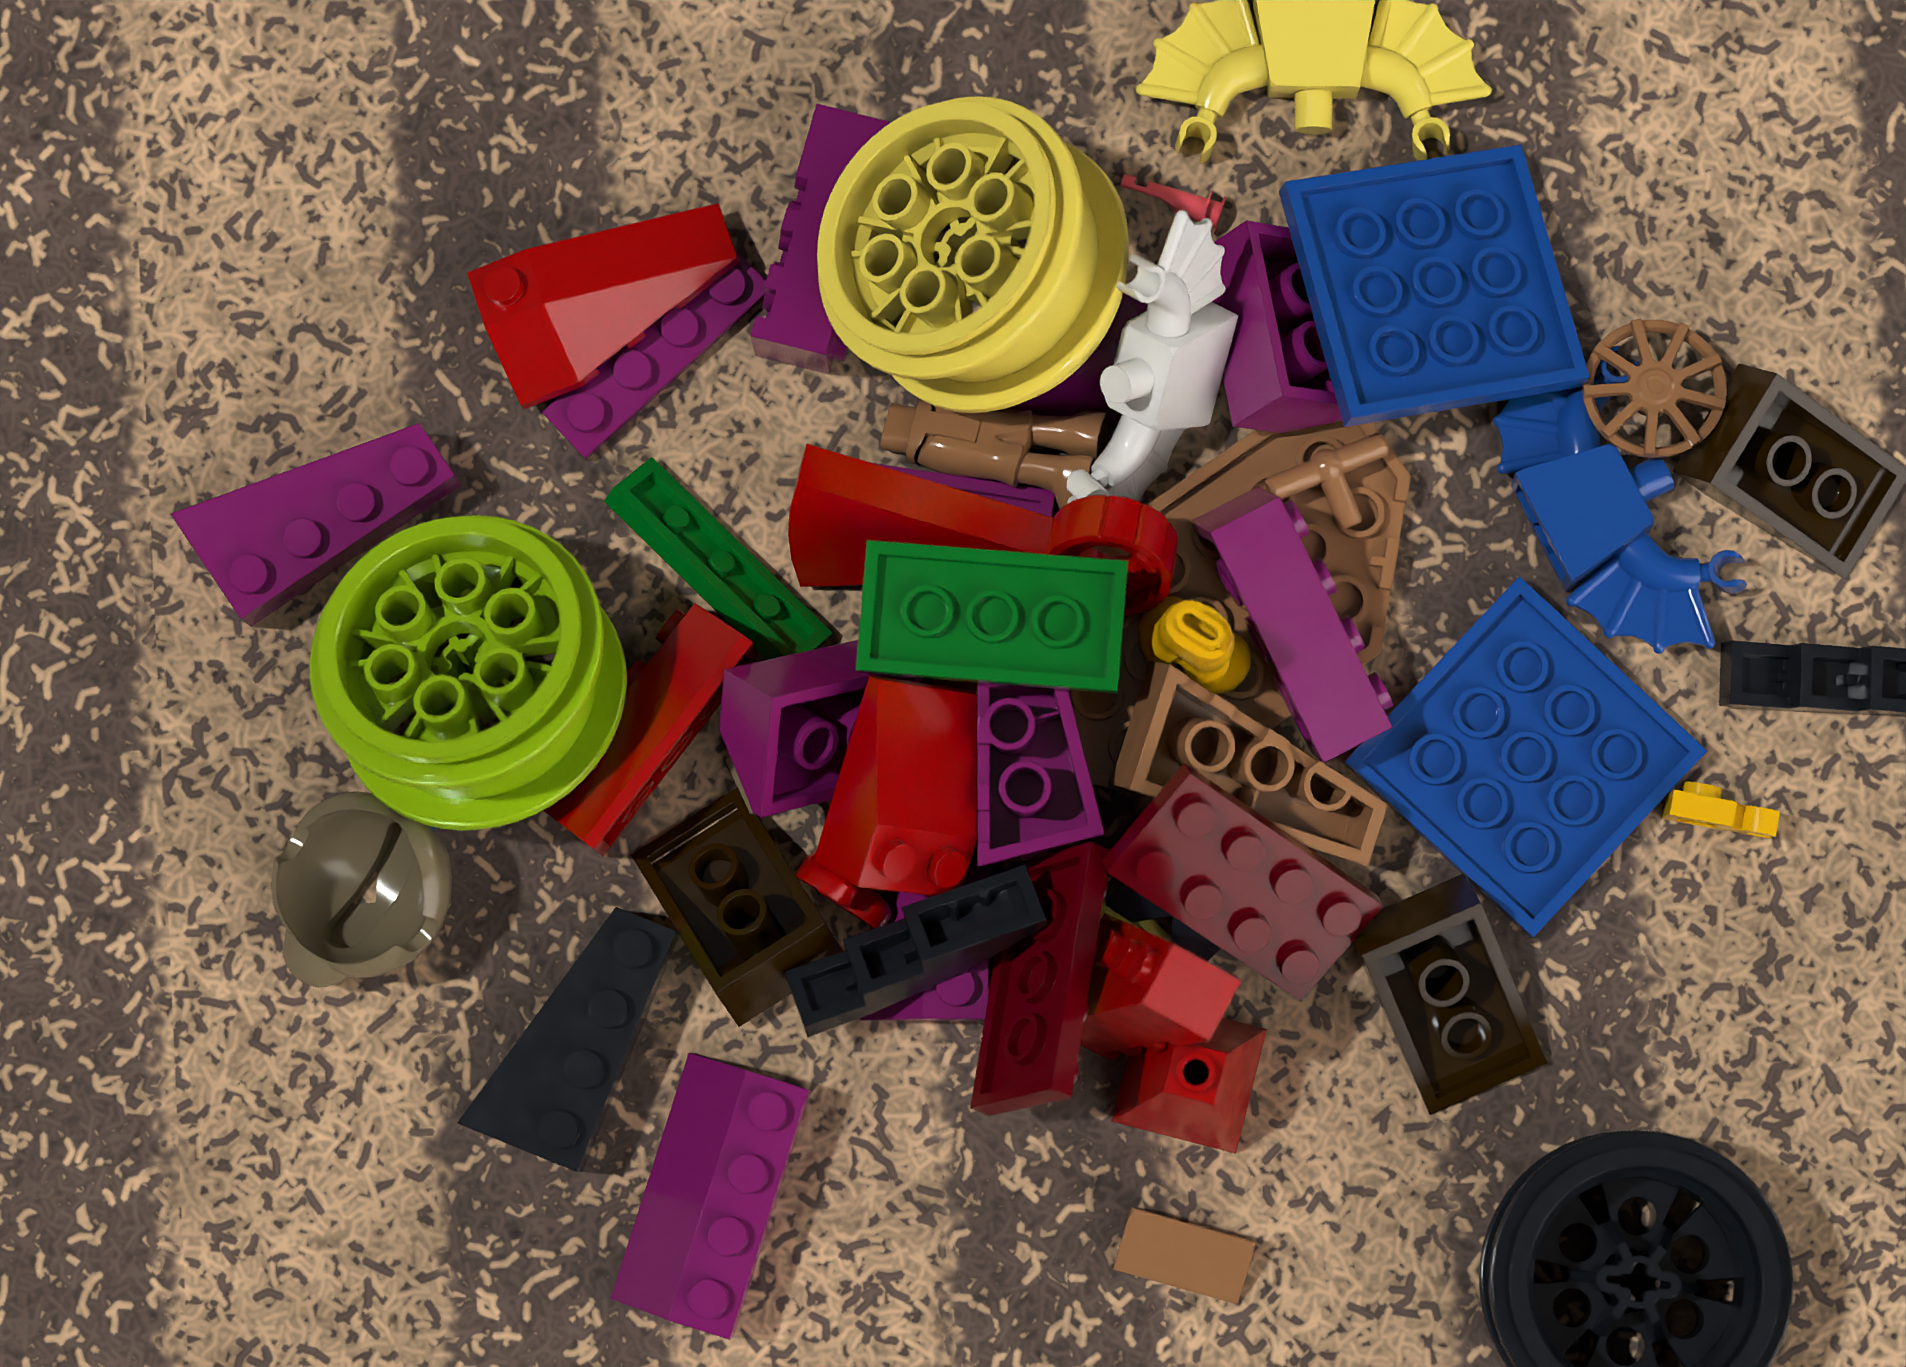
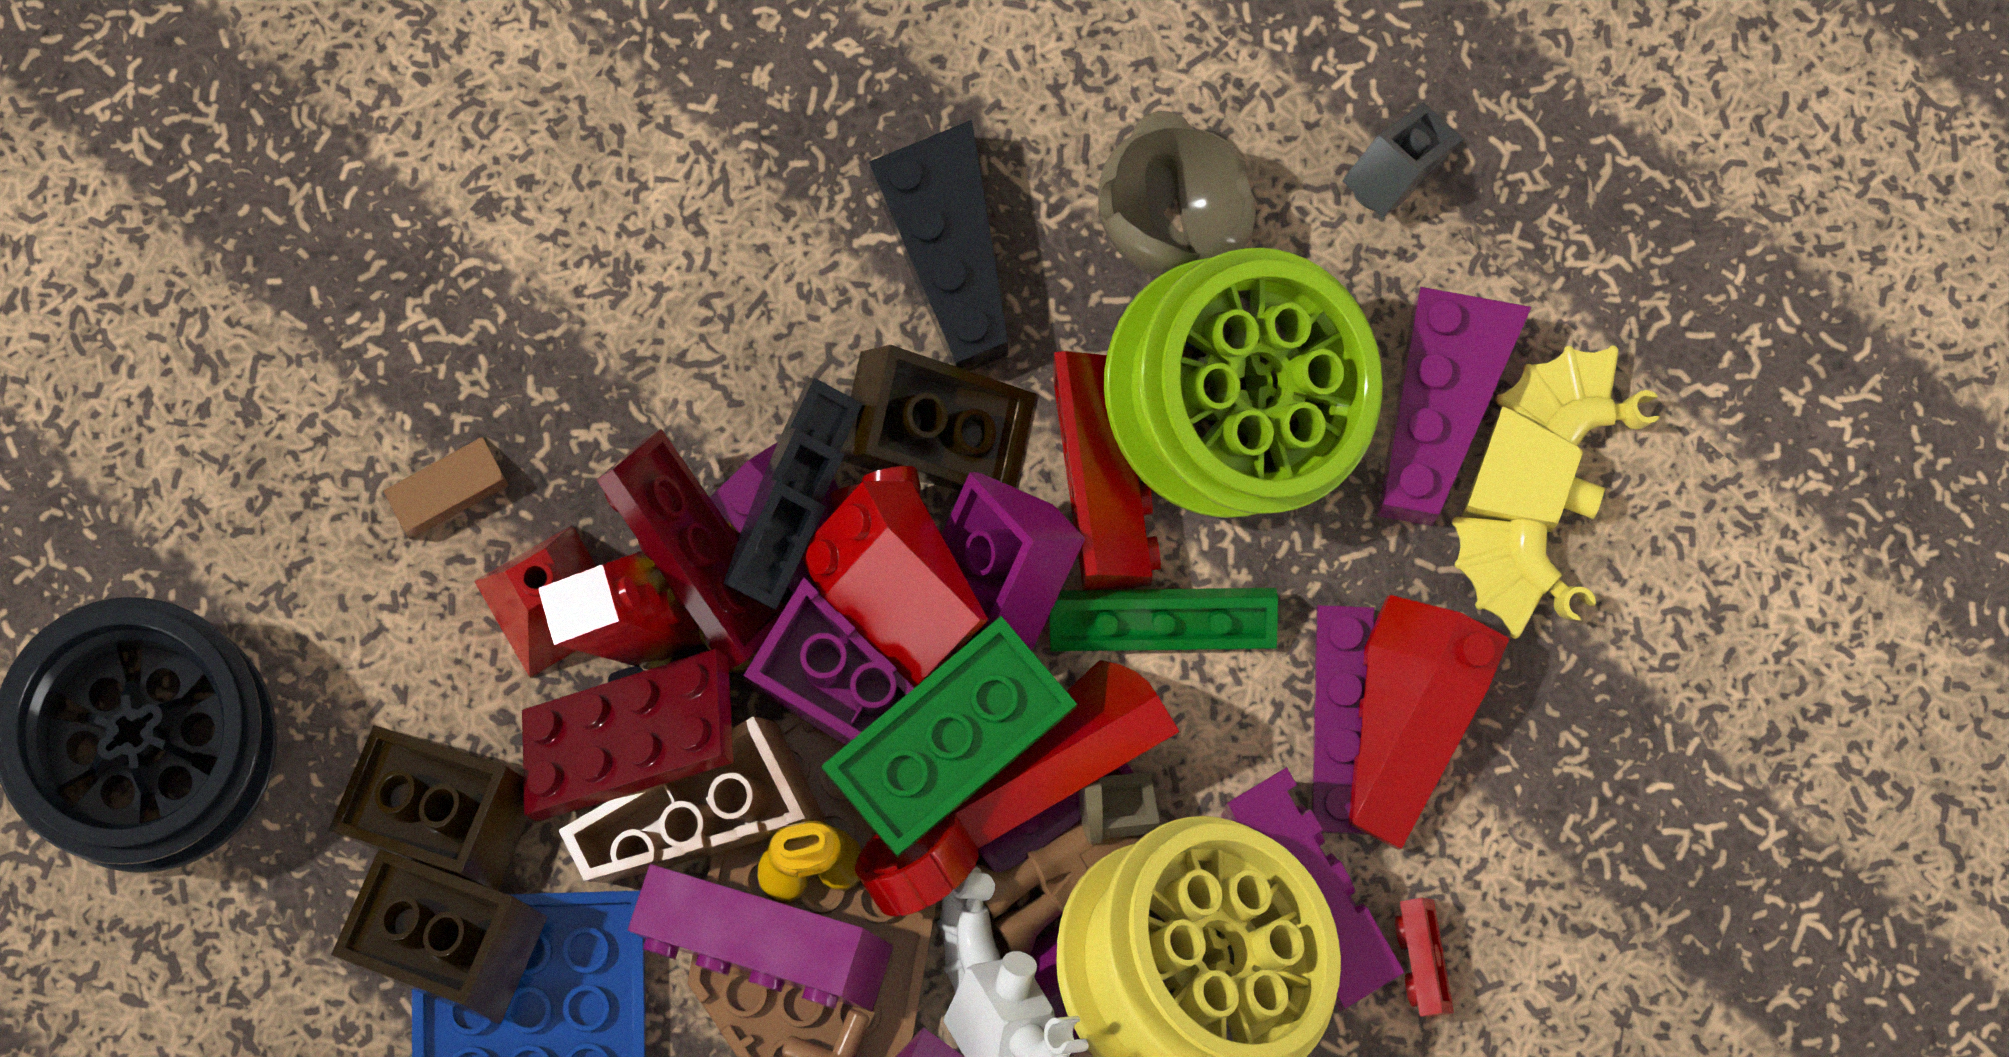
camera: 130 degrees right, 5 degrees down
(139, 745) = (1401, 160): none -> dark grey slope
(312, 385) = (1531, 479): none -> light yellow torso
(710, 1196) = (774, 236): magenta slope -> none
(802, 84) = (1420, 934): none -> red plate
(907, 444) = (1118, 807): none -> dark tan tile
(1543, 878) = (440, 935): none -> dark brown slope

